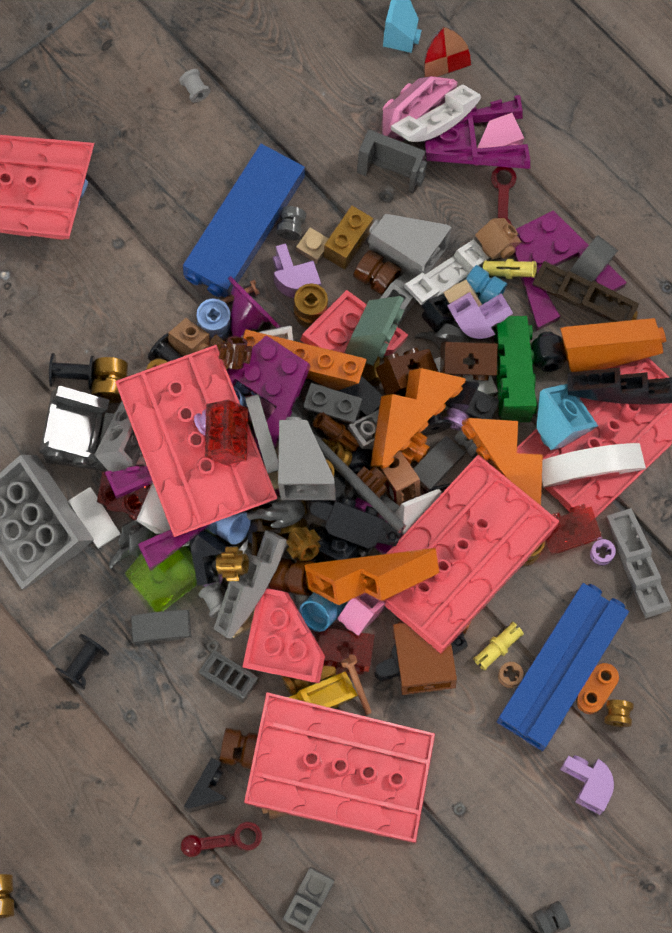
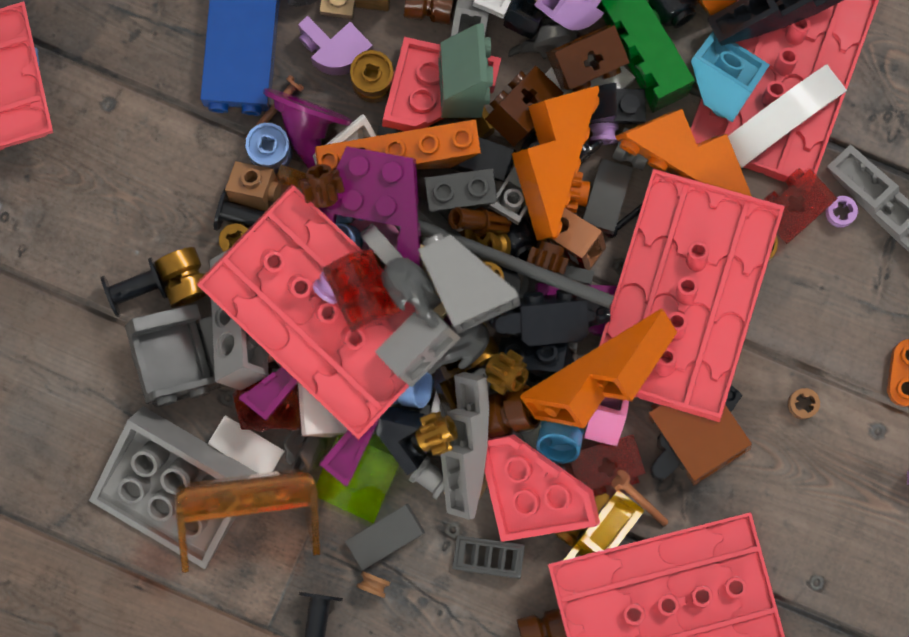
camera: 20 degrees left, 10 degrees up
(73, 539) = (246, 496): none -> clear orange windscreen
(136, 655) = (373, 584): none -> medium nougat bush
(248, 489) = (416, 347): none -> light grey hinge
(259, 439) = (405, 283): none -> dark grey piece
(412, 510) = (610, 267): white slope -> none
(498, 646) = (775, 377): light yellow pin -> none
(563, 666) = (859, 366): blue brick -> none

